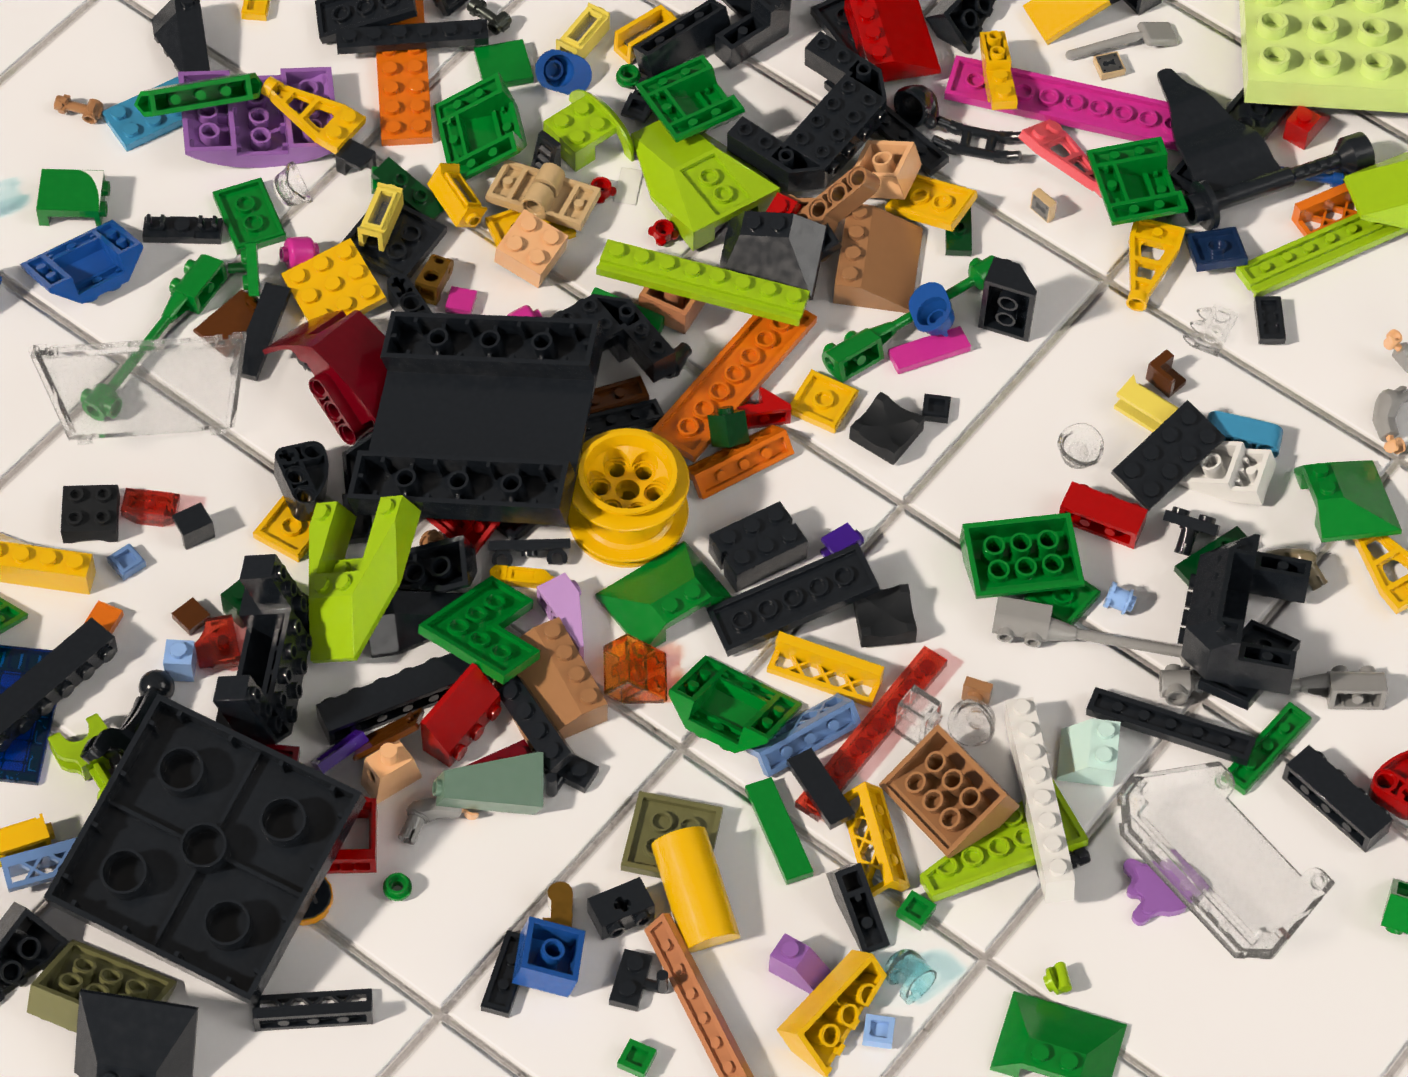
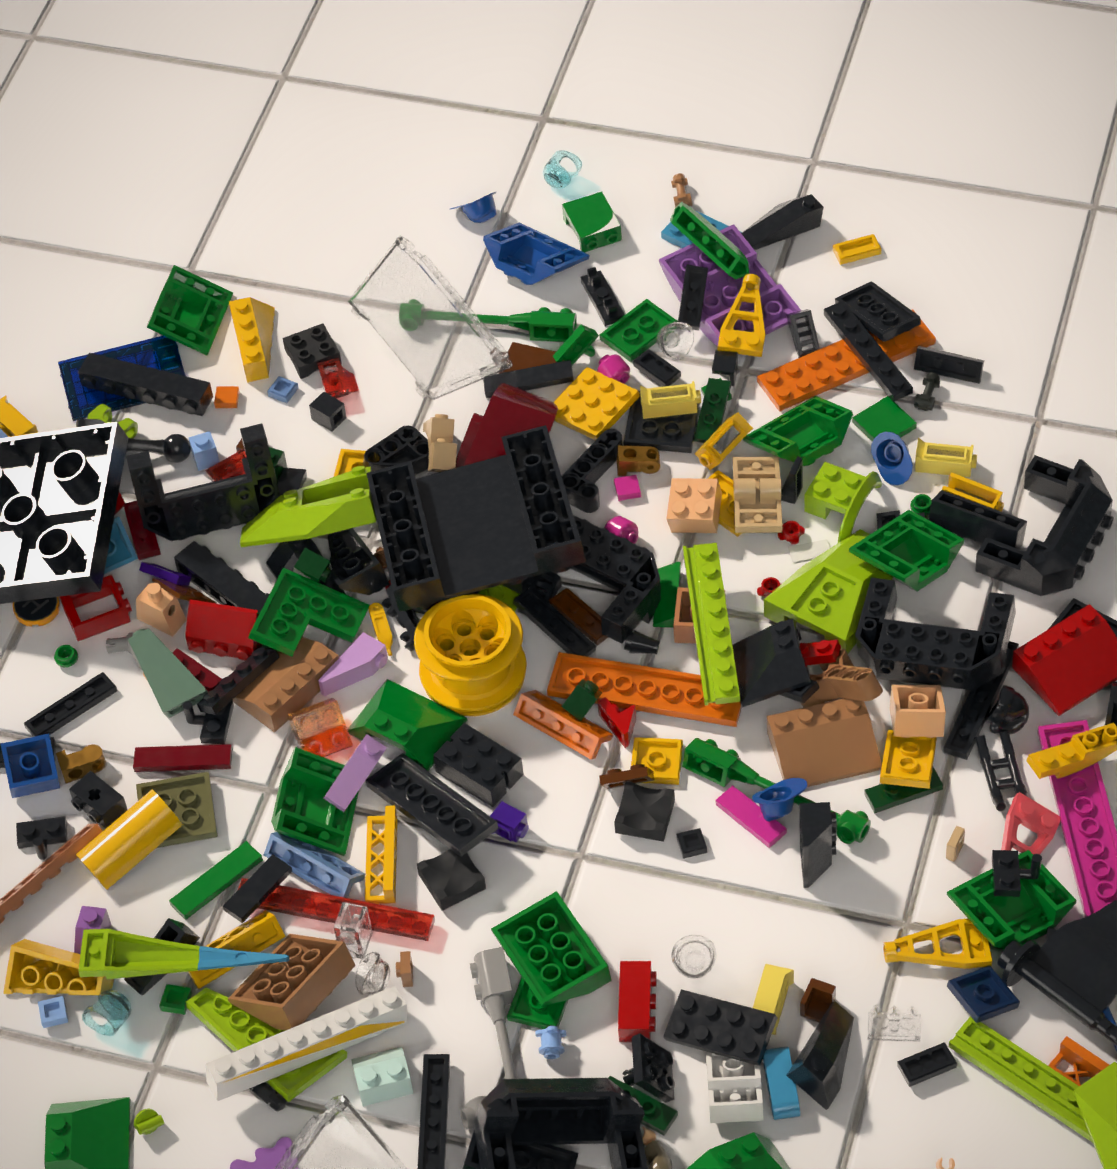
camera: 75 degrees right, 5 degrees down
(253, 144) = (692, 296): none -> black tile
(305, 424) = (440, 443): none -> tan arch
(317, 217) = (657, 368): none -> black plate
(345, 72) = (791, 317): none -> black slope
(426, 601) = (313, 566): none -> dark green brick
(469, 904) = (71, 706): none -> black tile
(600, 814) = (182, 758): none -> dark red tile
(712, 651) = (355, 772): none -> lavender slope
(838, 433) = (618, 778): none -> reddish brown plate
(867, 922) = (131, 955): none -> lime plate
(1113, 171) = (1007, 872): none -> black plate
(1241, 391) = (823, 1058): none -> black wedge

